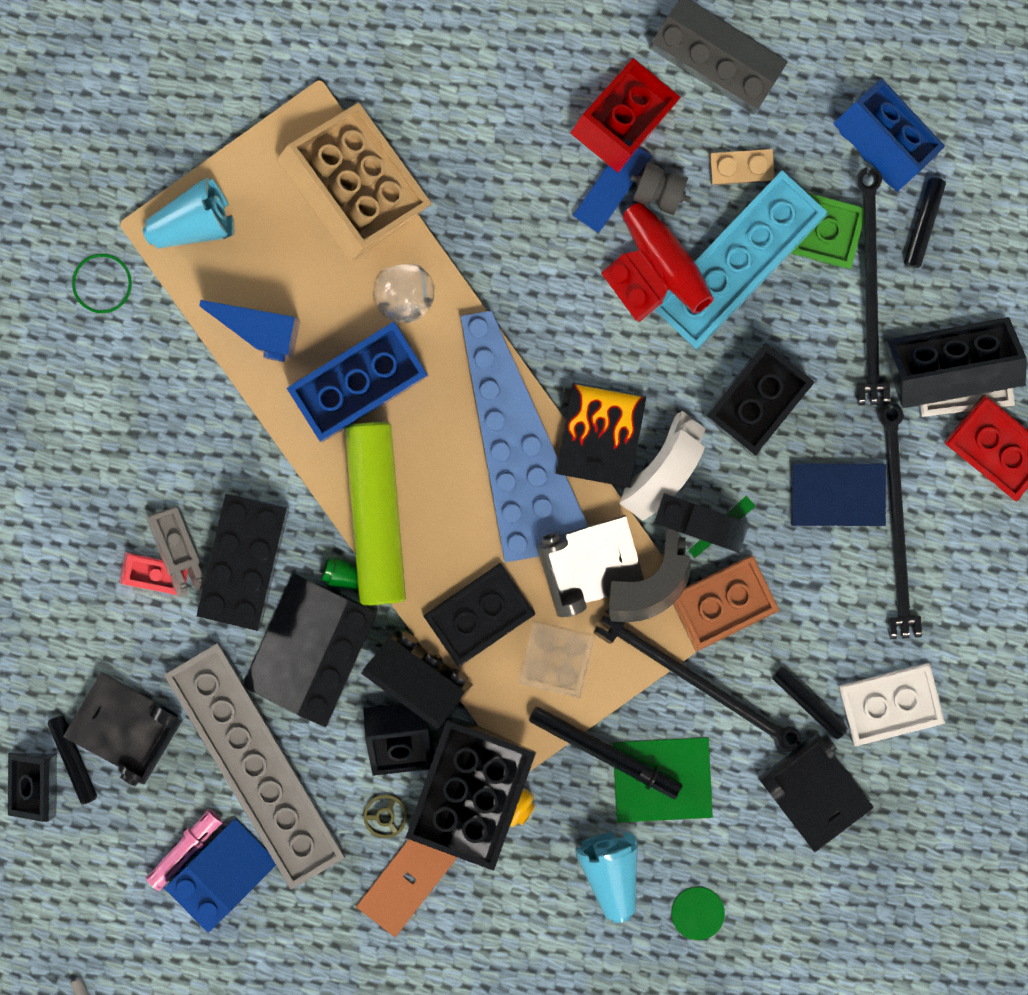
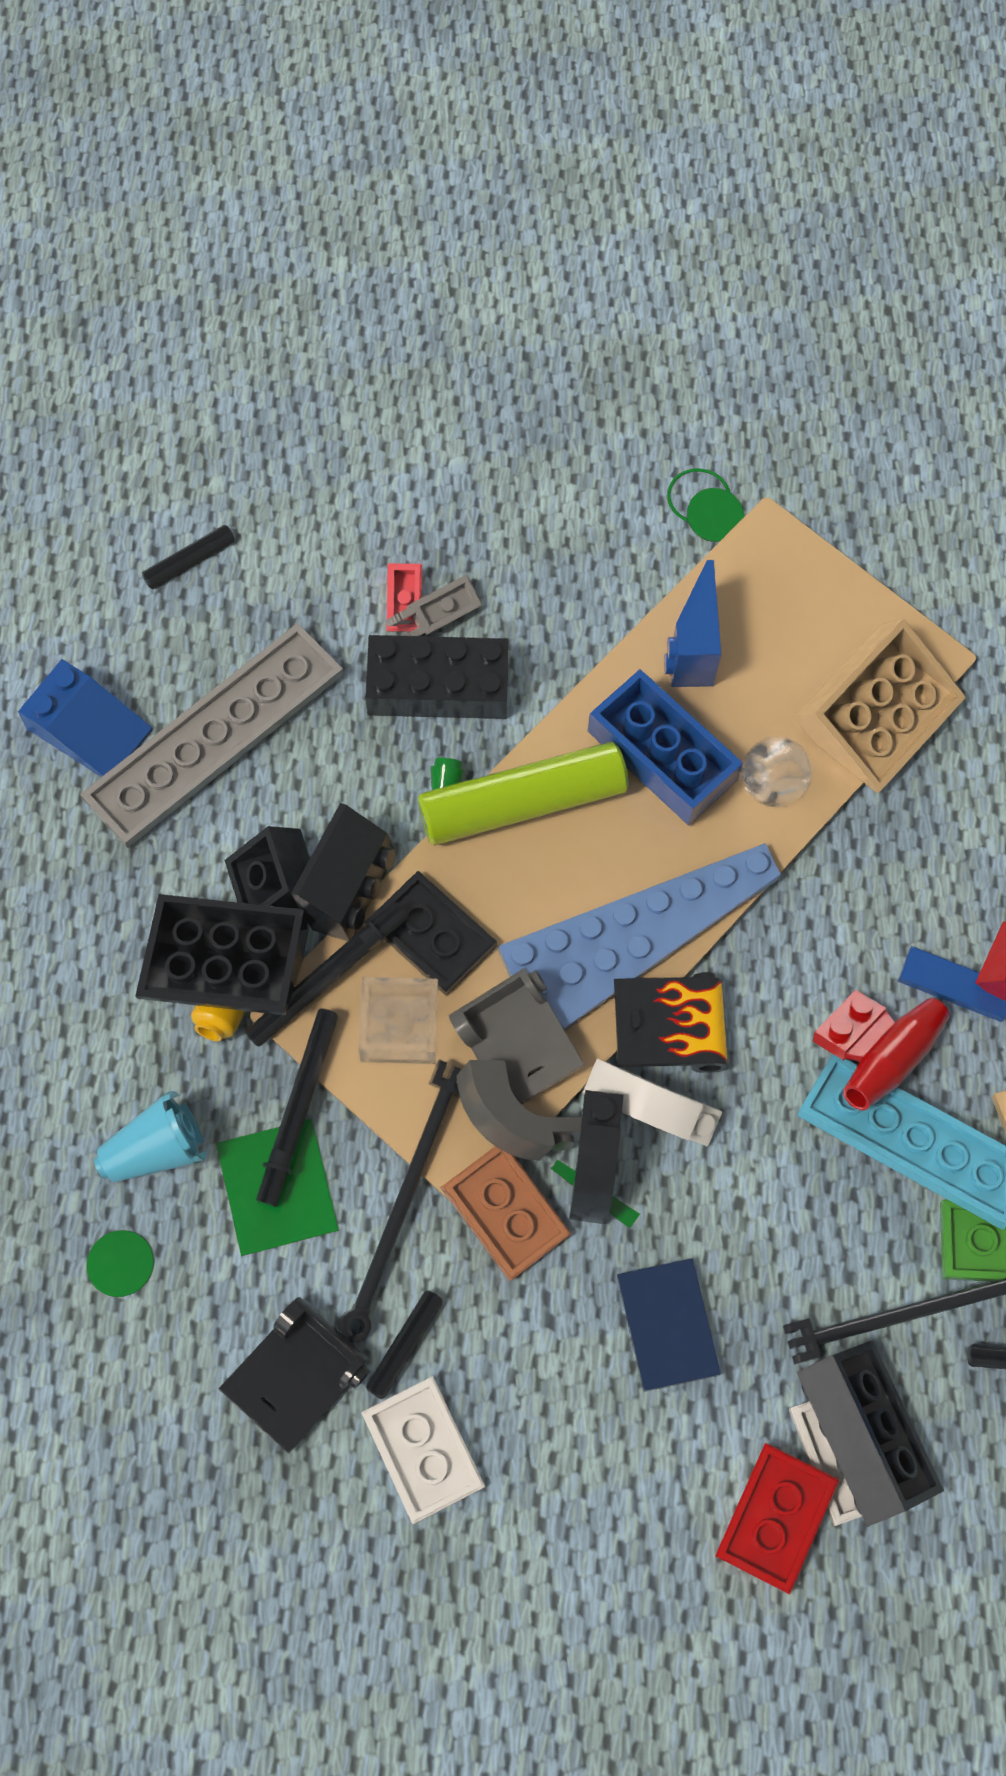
camera: 75 degrees right, 20 degrees down
(32, 786) = (154, 526): black slope -> none
(125, 274) = (714, 513): none -> green piece
(127, 729) = (231, 601): black door -> none
(191, 218) = (796, 553): medium azure cone -> none
(193, 839) = (119, 686): bright pink pin -> none
(310, 650) = (353, 763): black slope -> none
(389, 809) = (180, 873): olive piece -> none
(393, 897) = (86, 911): nougat piece -> none
(479, 673) = (330, 971): none -> black axle
(665, 190) = (972, 1028): dark grey wheel -> none
(759, 399) = (760, 1196): black brick -> none
(898, 531) = (535, 1442): black hinge -> none

